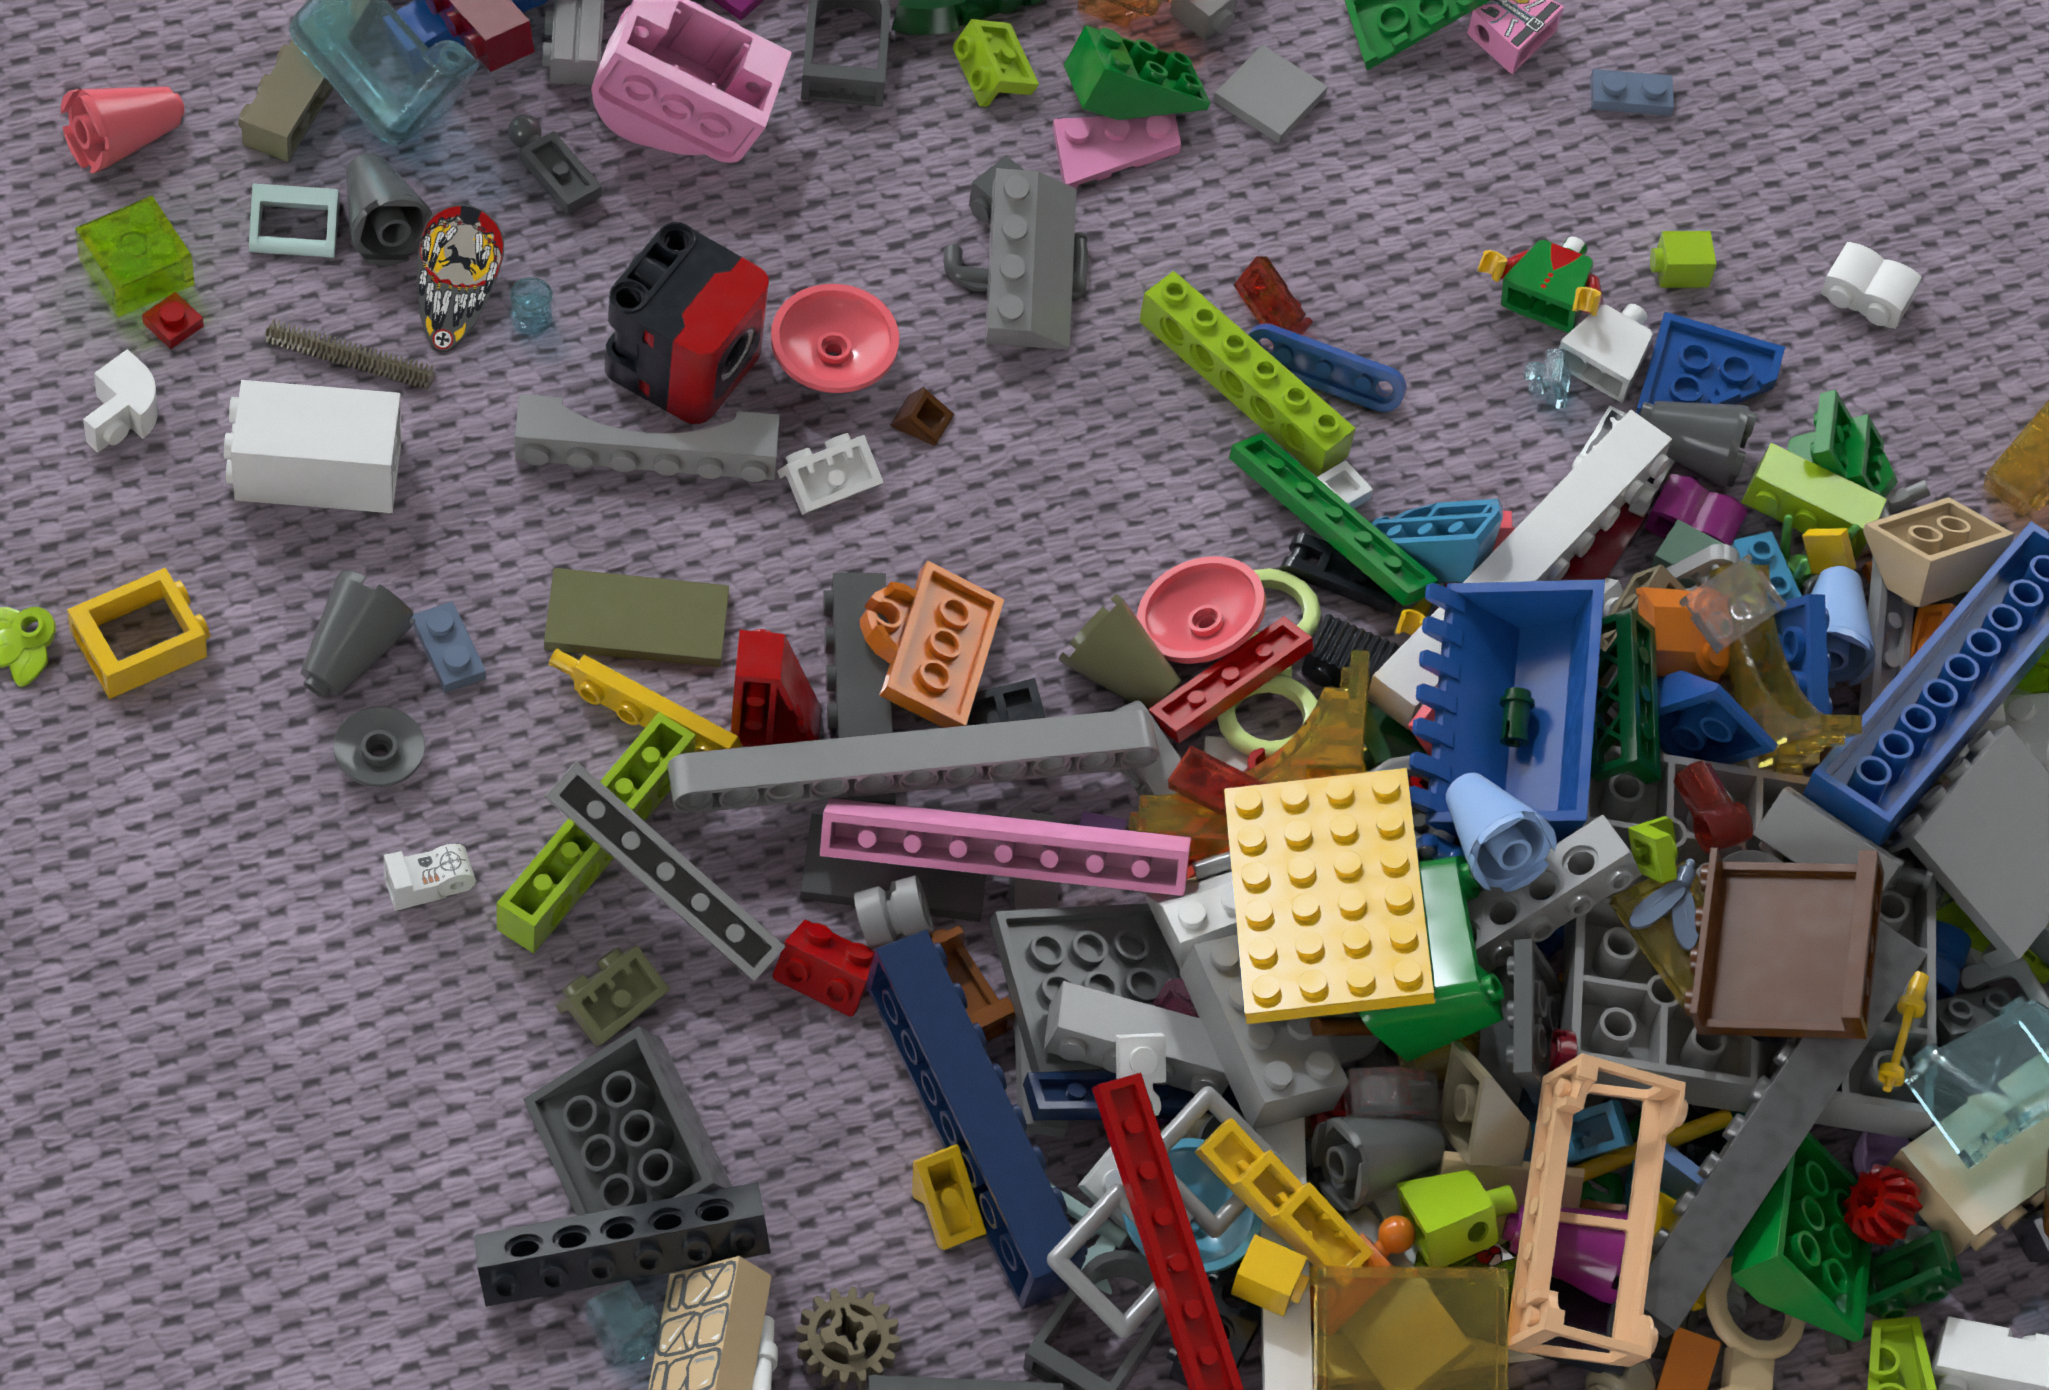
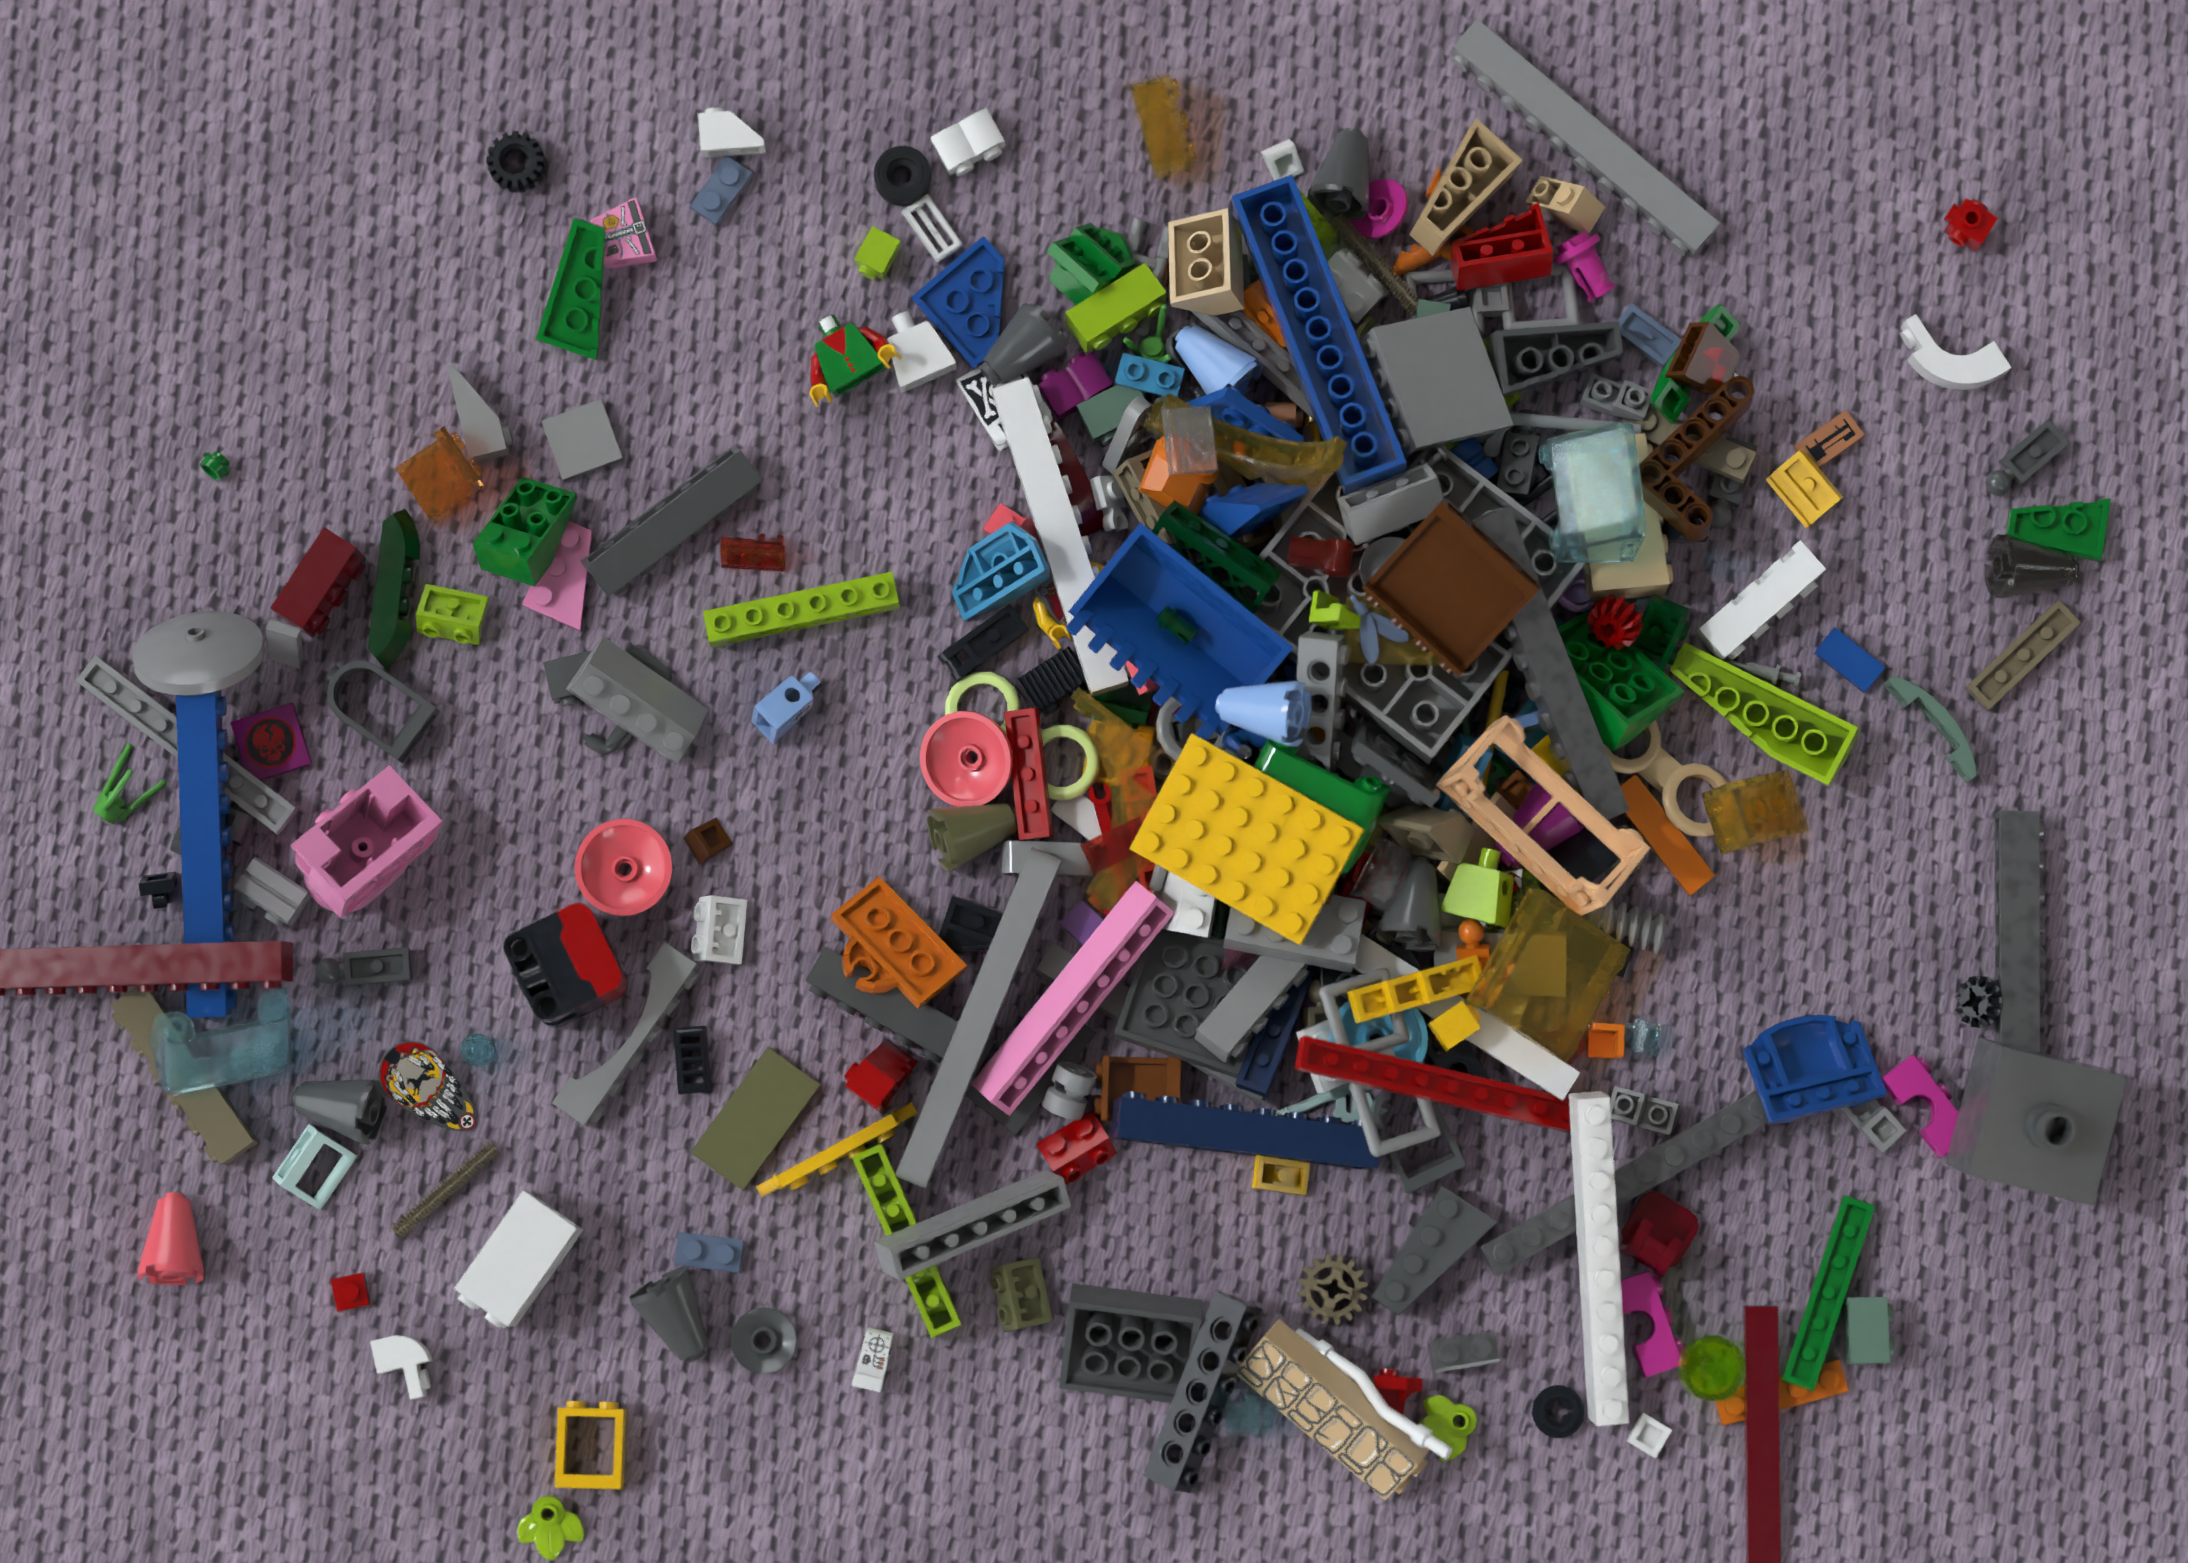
camera: 50 degrees left, 25 degrees up
(134, 256) = (289, 1293): clear neon green brick -> none
(670, 498) = (686, 1032): none -> black slope
(1127, 405) = (776, 715): none -> light blue torso
(1146, 1055) = (1277, 1016): white plate -> none
(1248, 205) = (672, 521): none -> dark grey brick
(1332, 518) = (946, 628): green plate -> none
(1333, 369) = (825, 552): blue plate -> none
(1347, 484) = (921, 602): white plate -> none
(1550, 378) = (918, 408): clear light blue tile -> none
(1561, 1049) = (1421, 758): dark red tile -> none
(1693, 61) = (727, 135): none -> white slope
(1742, 326) = (947, 251): none -> white tile
(1788, 224) = (897, 158): none -> black tyre
(1828, 549) = (1162, 329): yellow tile -> none
(1910, 1006) = (1519, 520): yellow piece -> none

